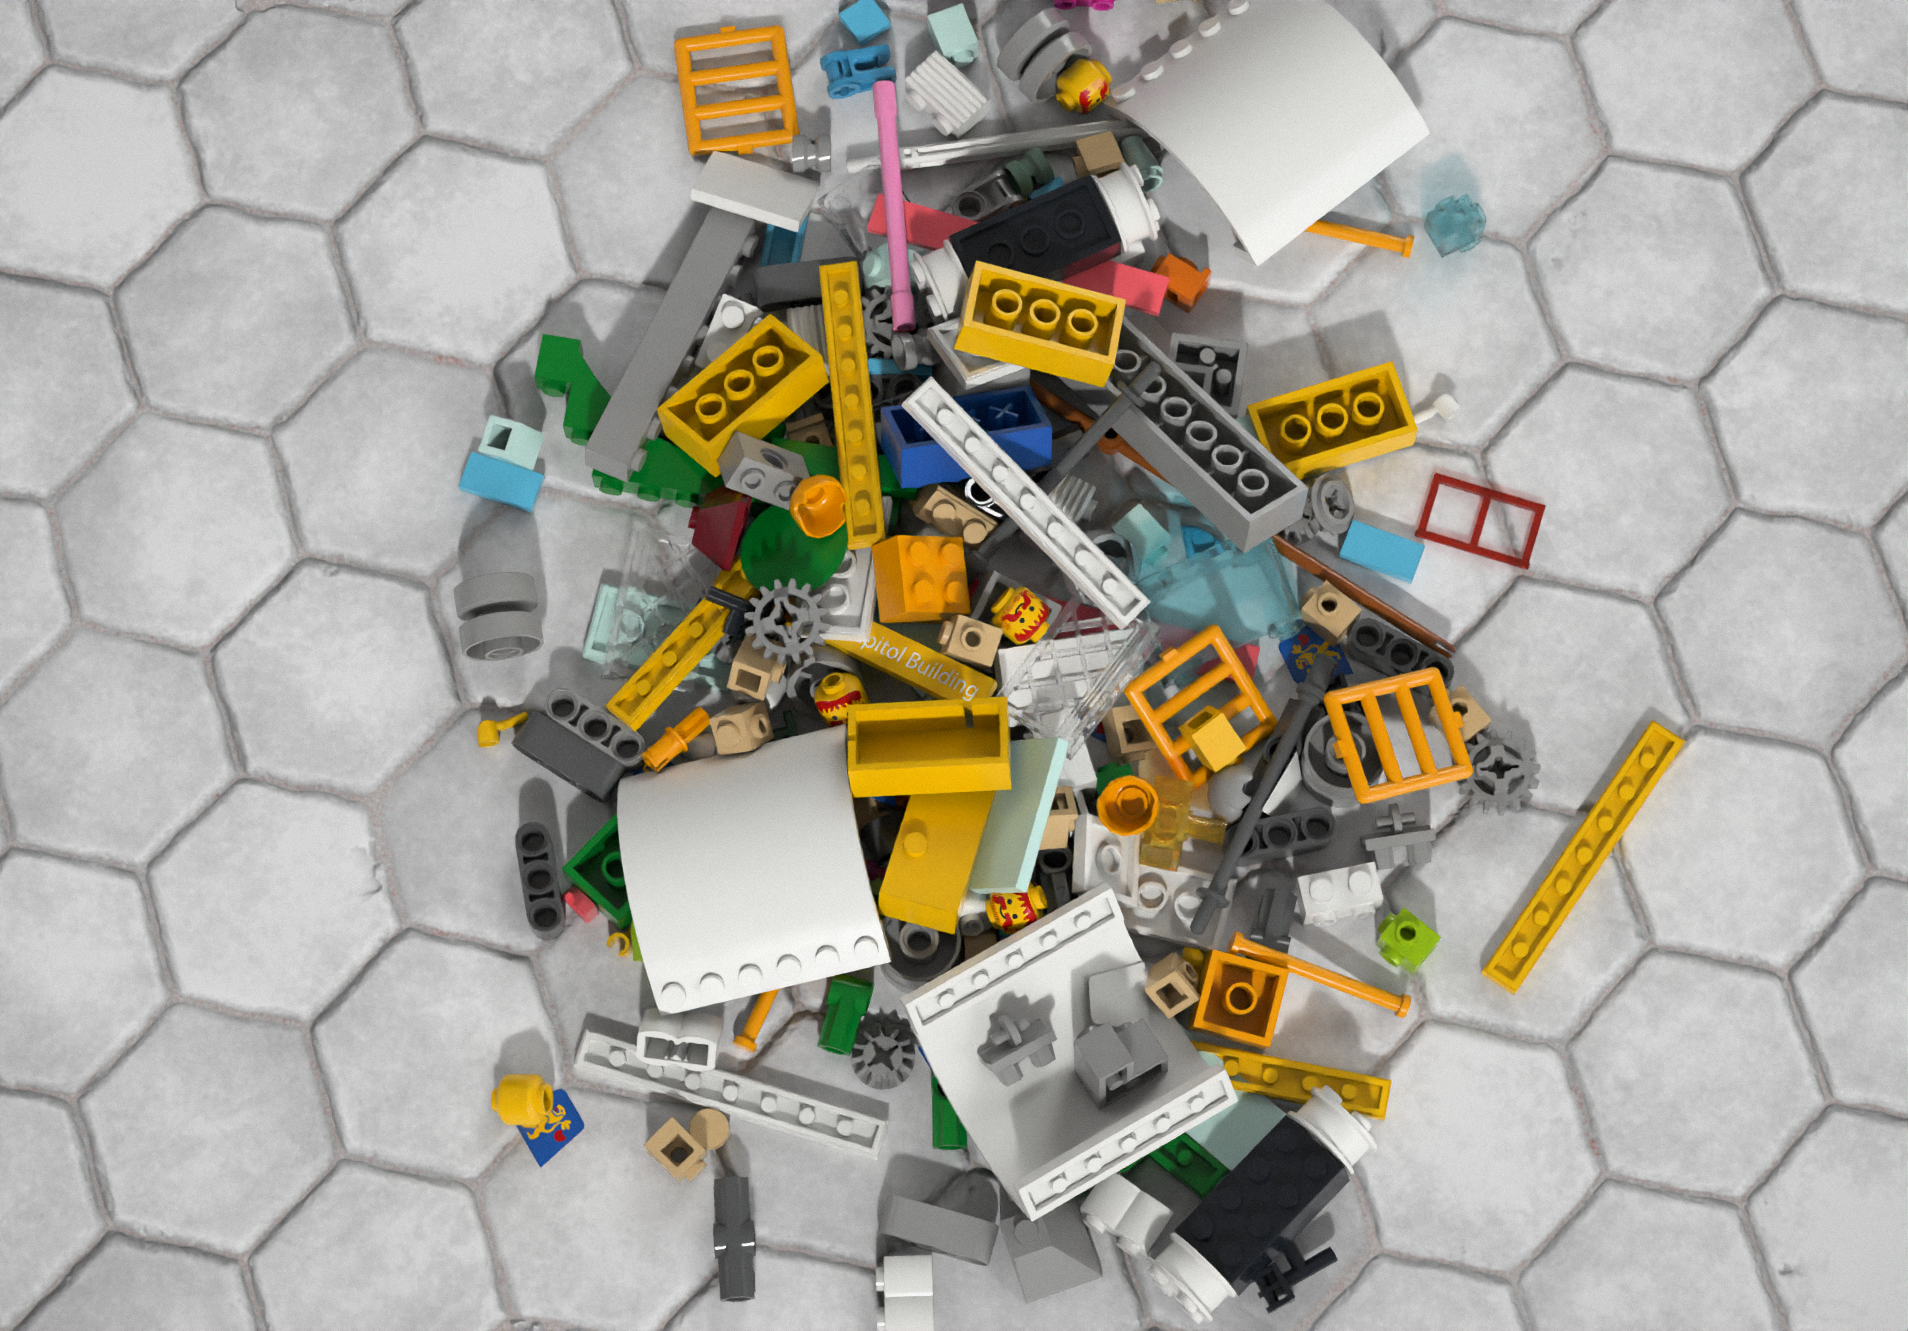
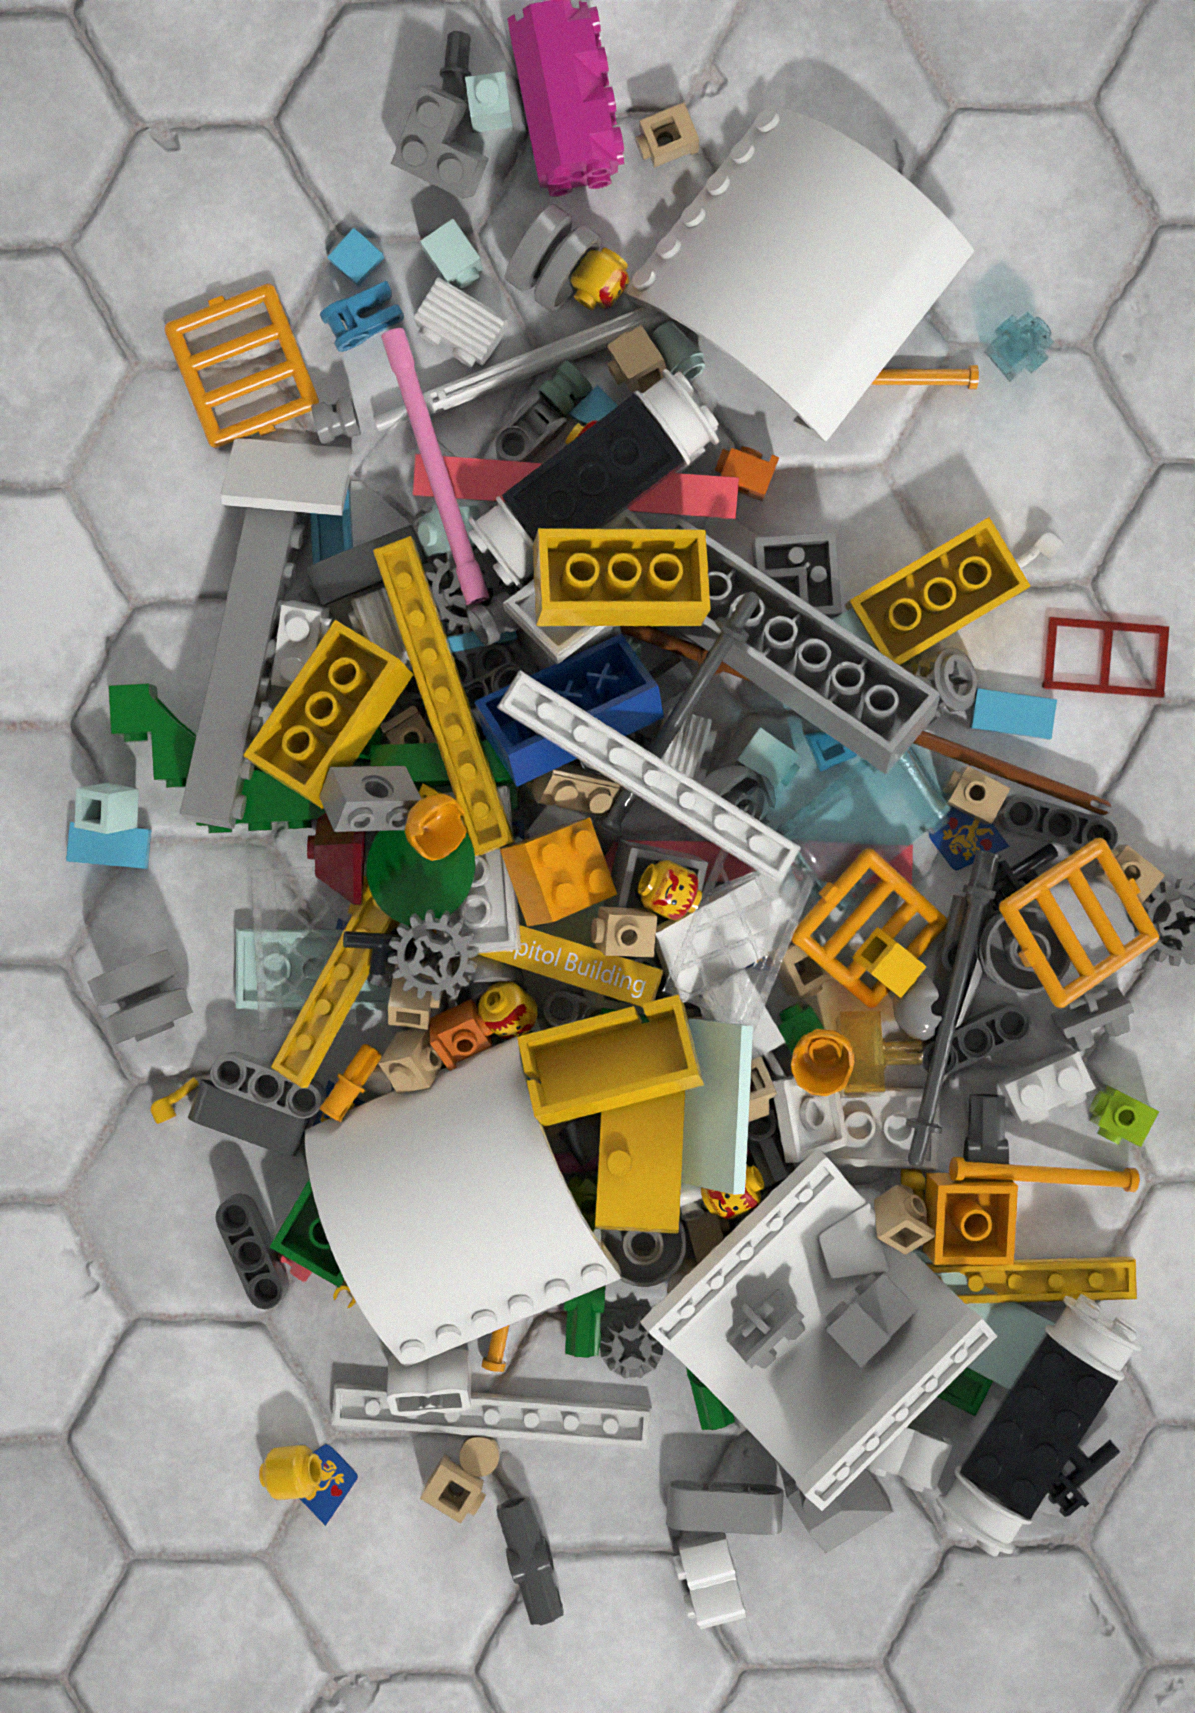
camera: 20 degrees left, 15 degrees up
(797, 699) = (459, 1033): none -> orange brick

